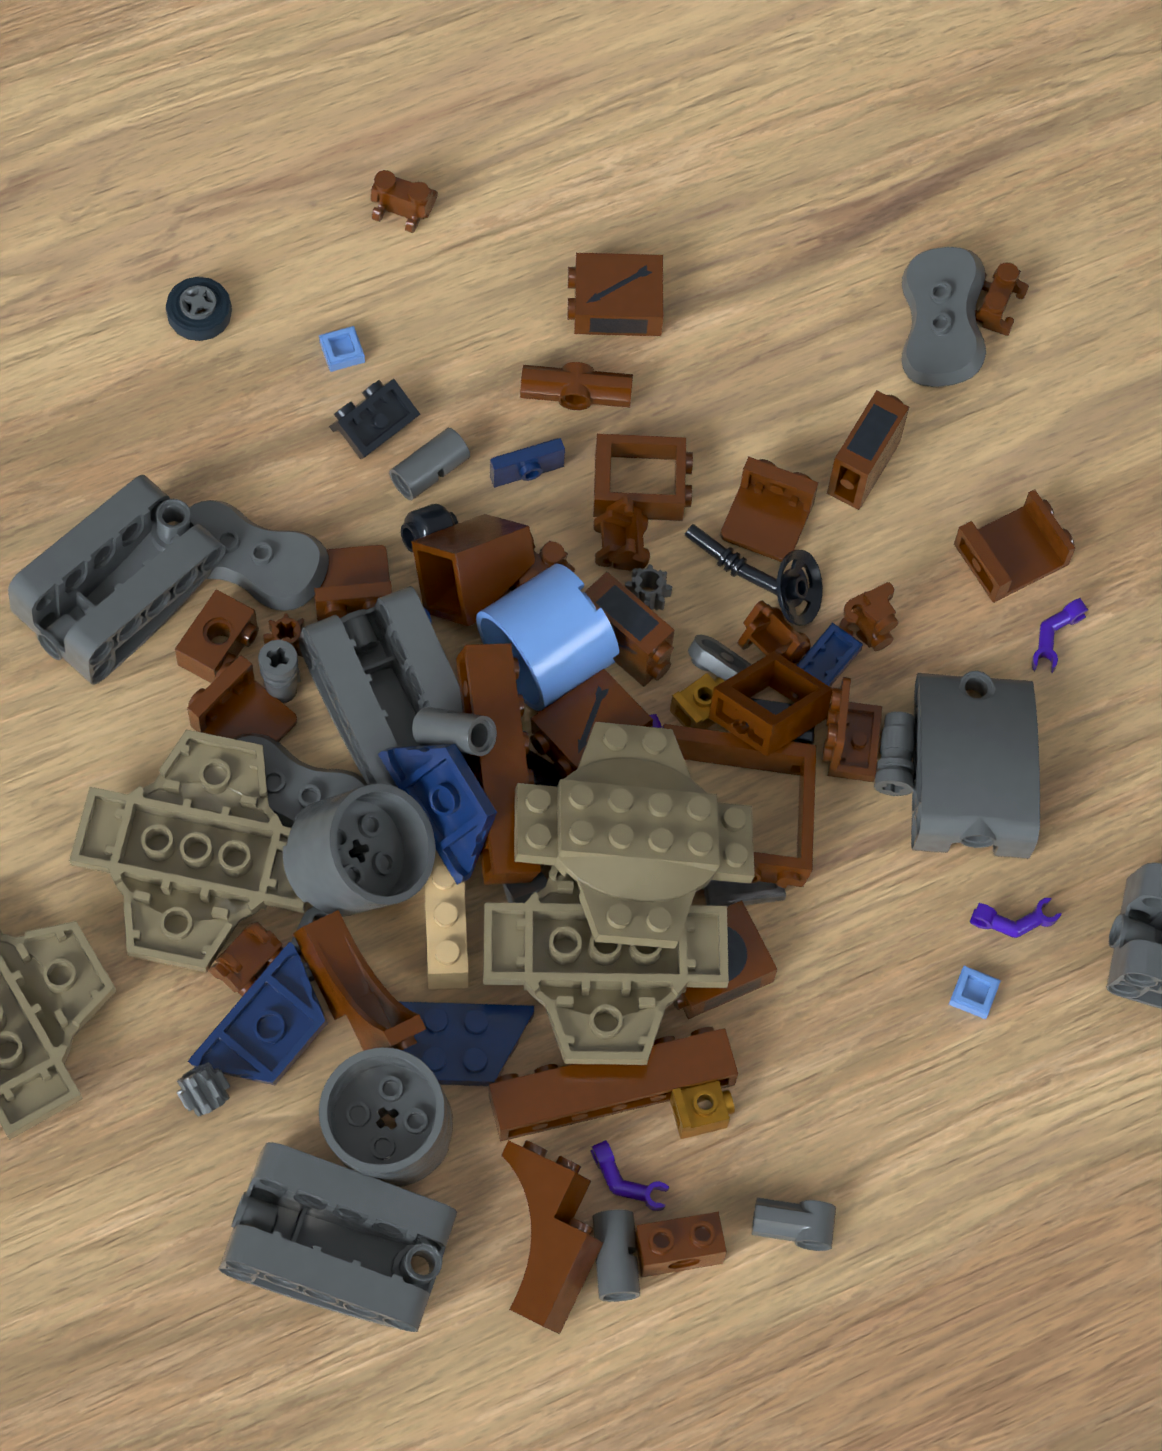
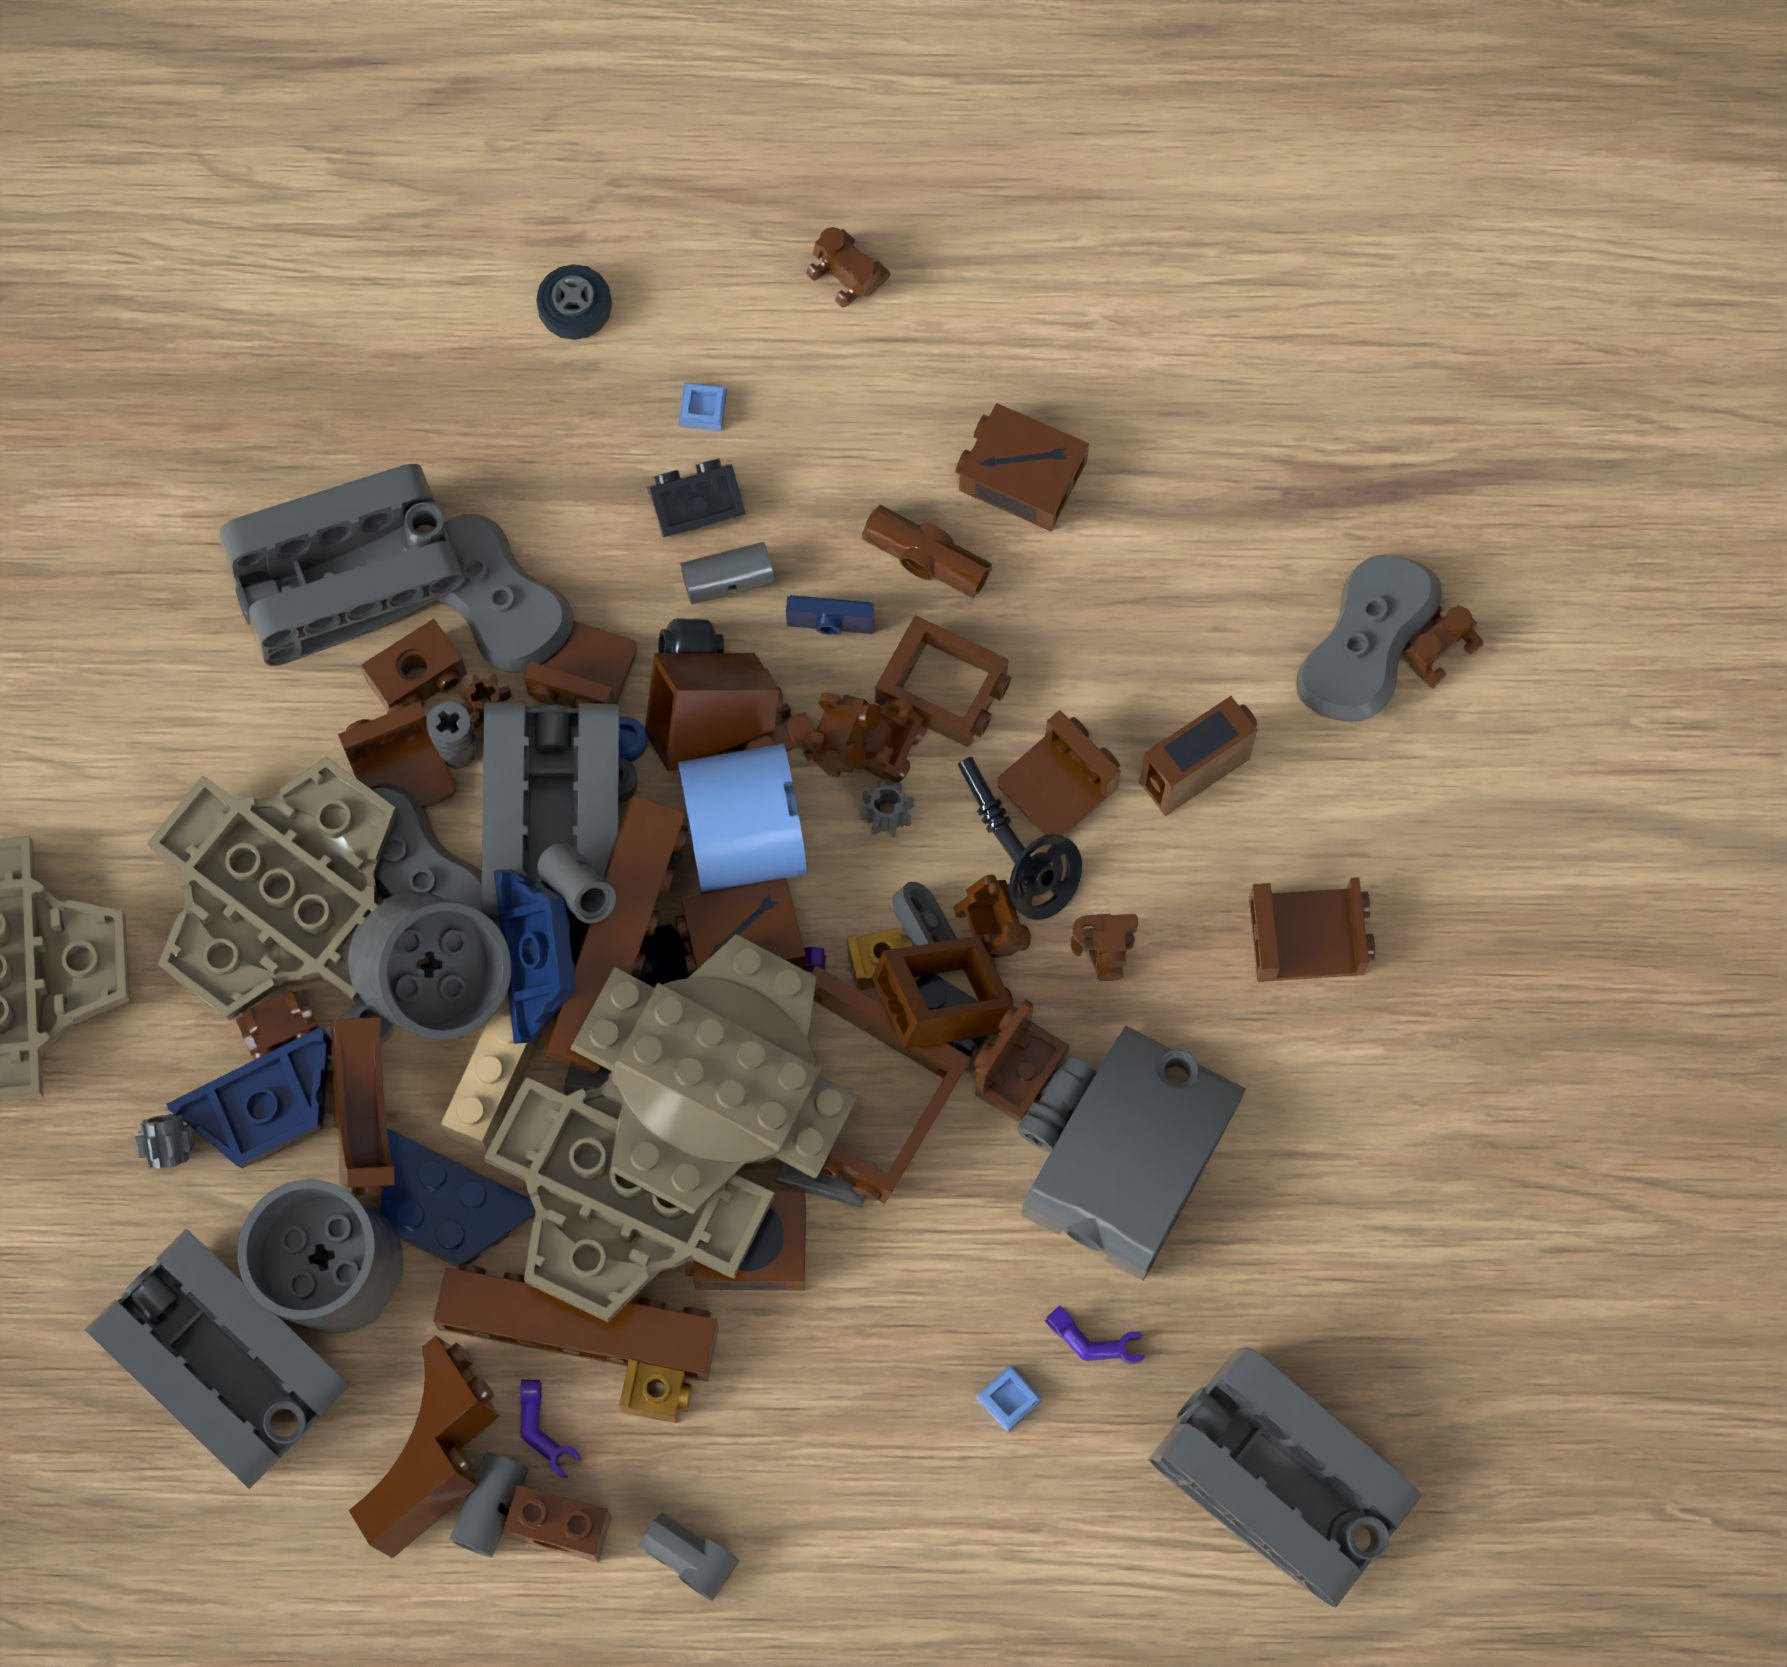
camera: 30 degrees right, 5 degrees up
(587, 544) = (842, 733): none -> reddish brown piece
(641, 634) = (835, 844): reddish brown brick -> none
(830, 654) = (1040, 967): dark blue plate -> none
(1070, 615) = (1332, 1032): dark purple arm -> none

